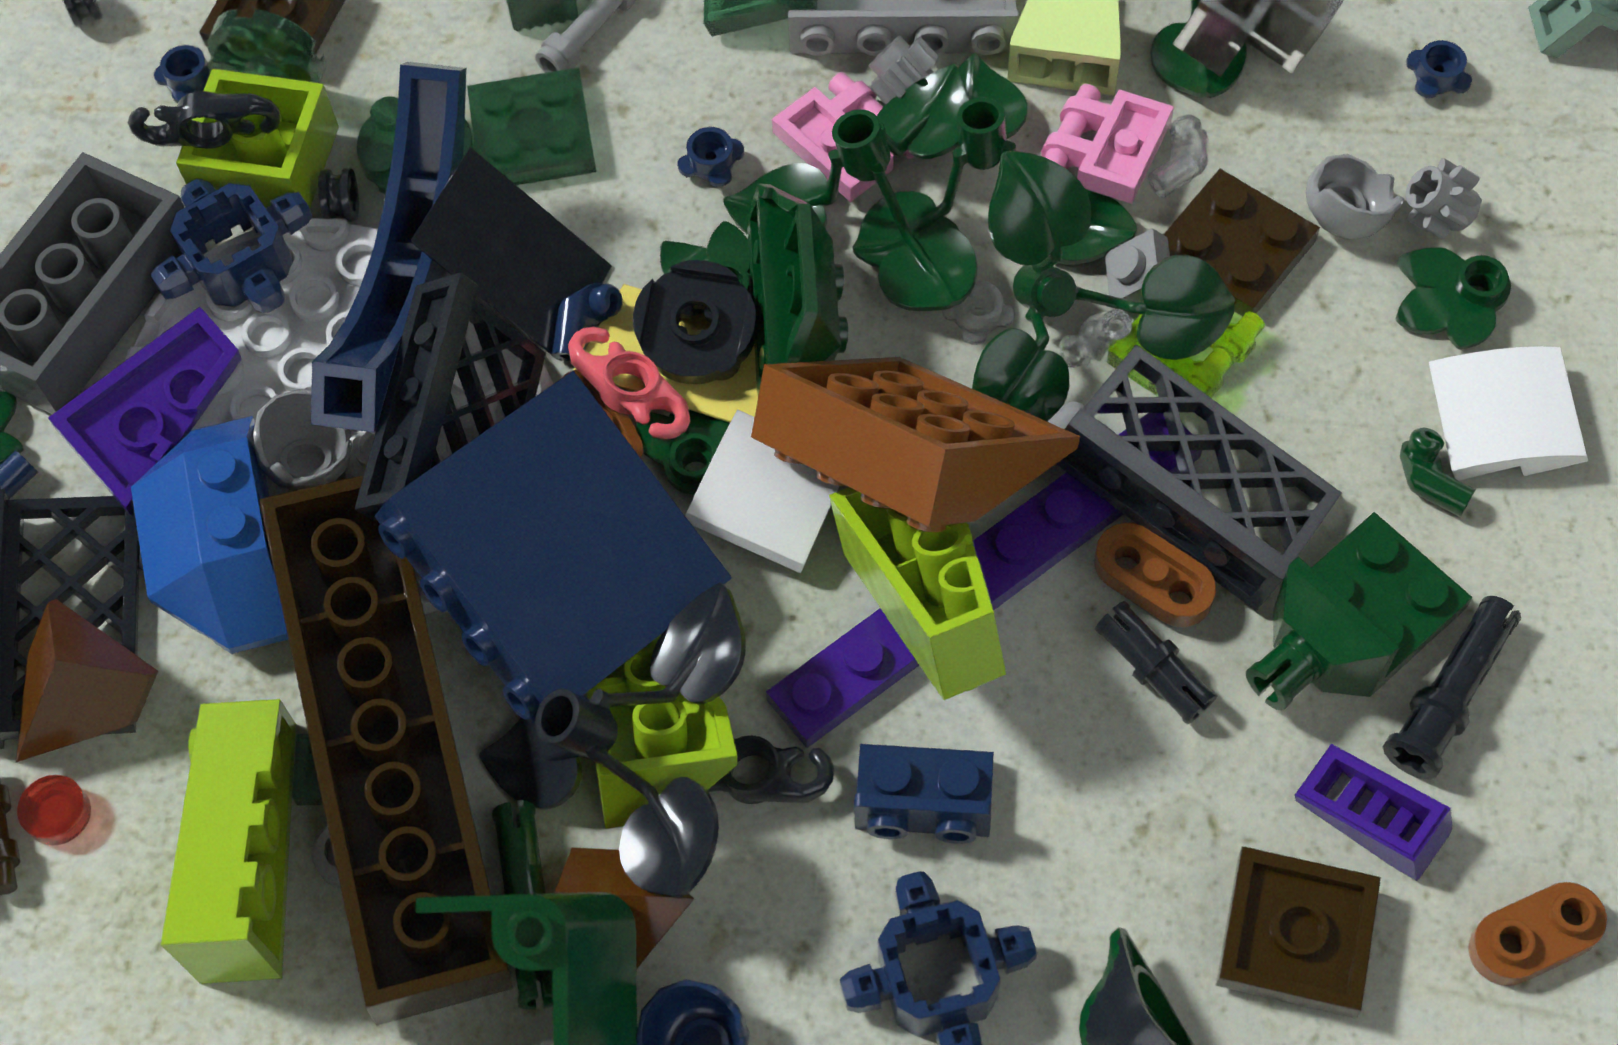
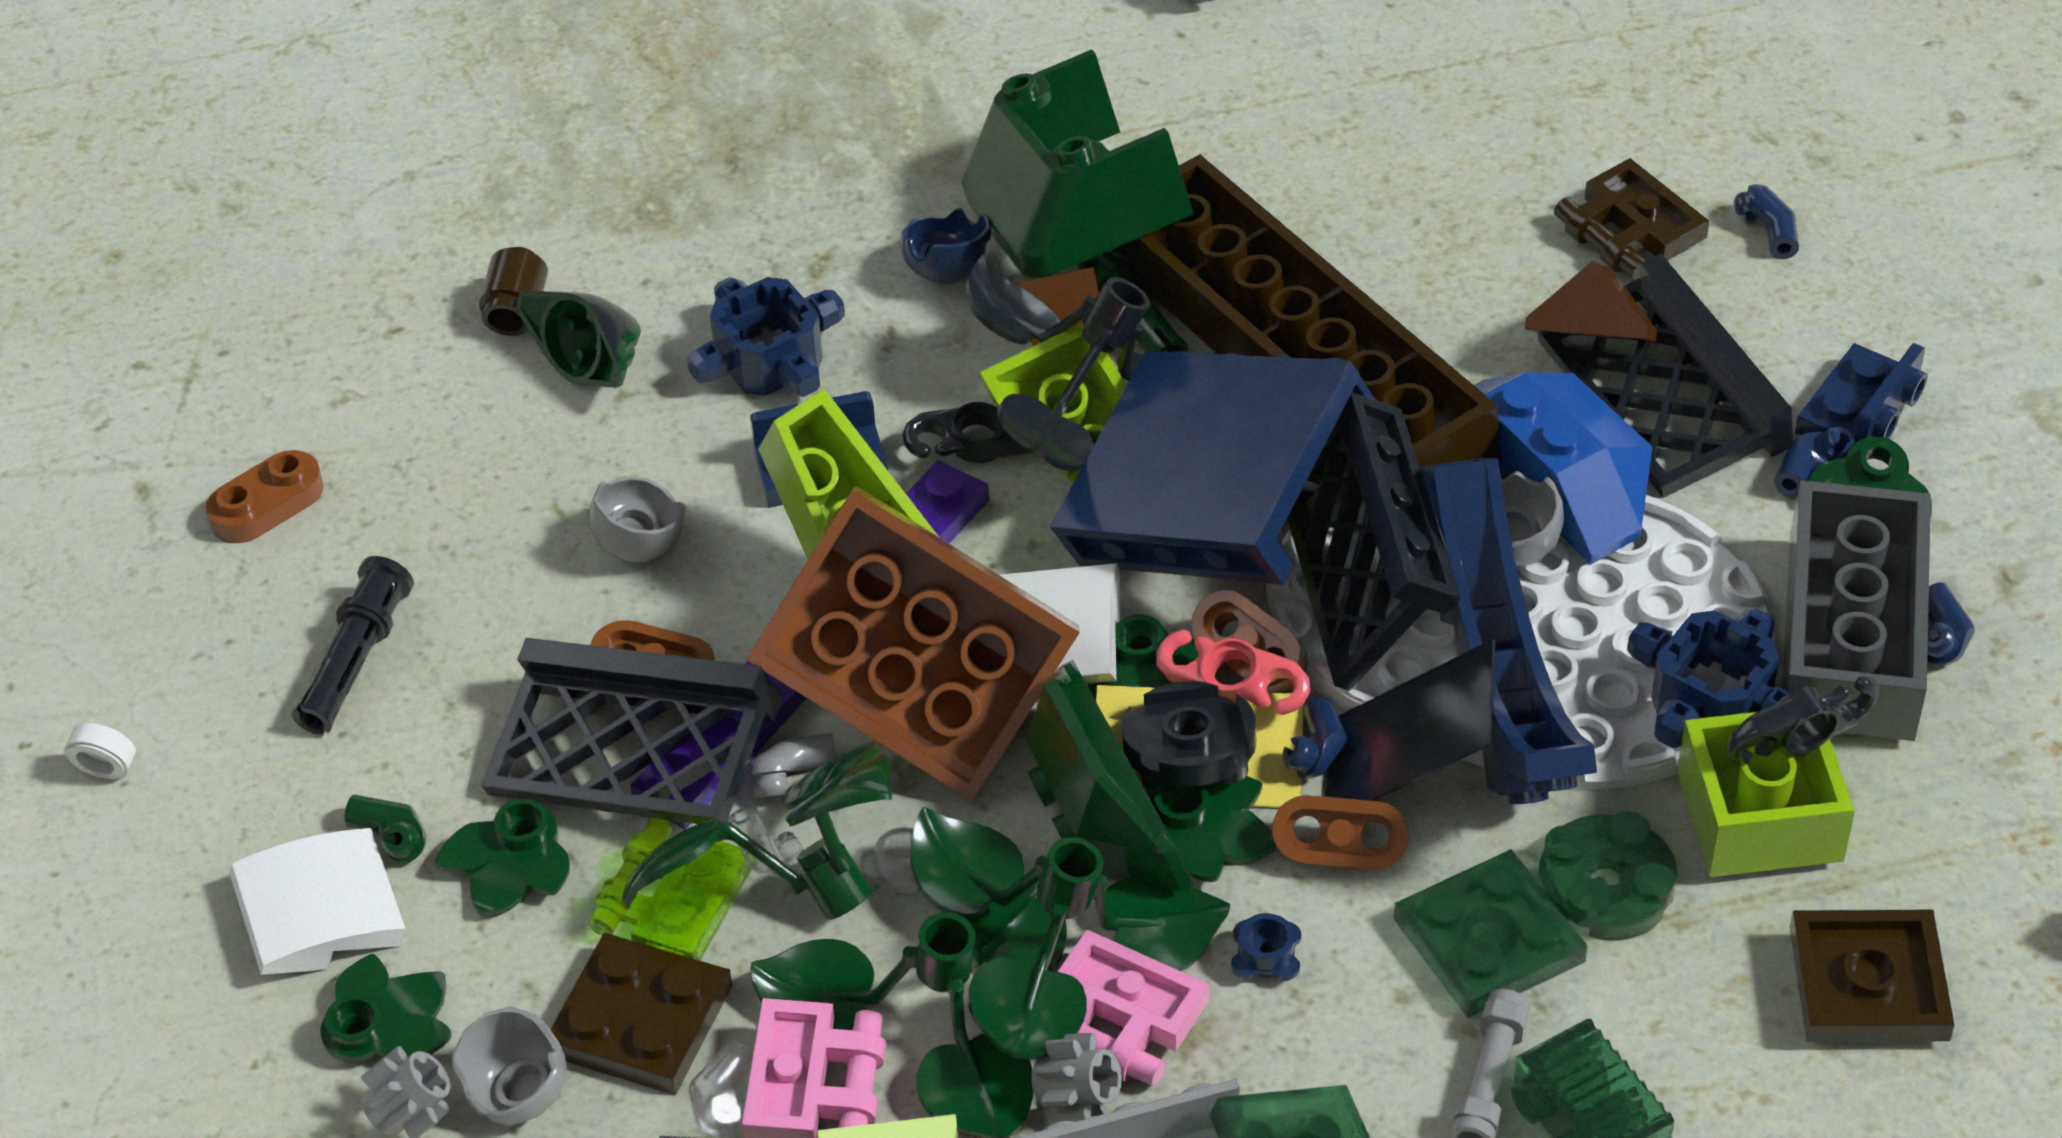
camera: 160 degrees right, 15 degrees down
(54, 810) = (1559, 261): clear red tile -> none
(148, 403) = (1694, 526): dark purple wing -> none
(182, 71) = (1924, 868): dark blue plate -> none
(233, 845) = (1378, 240): lime wedge -> none
(264, 47) = (1788, 867): clear green plate -> none
(338, 194) = (1652, 787): black bush -> none
(597, 218) = (1340, 832): none -> dark orange plate
(1131, 262) = (735, 930): light grey plate -> none
(1138, 738) = (635, 519): none -> light grey hair
(1156, 662) = (636, 593): black pin -> none
(1299, 932) = (470, 437): dark brown plate -> none
(1330, 410) = (503, 861): none -> dark green plate
(1355, 616) = (456, 674): dark green plate -> none
(1387, 844) = (405, 518): dark purple slope -> none

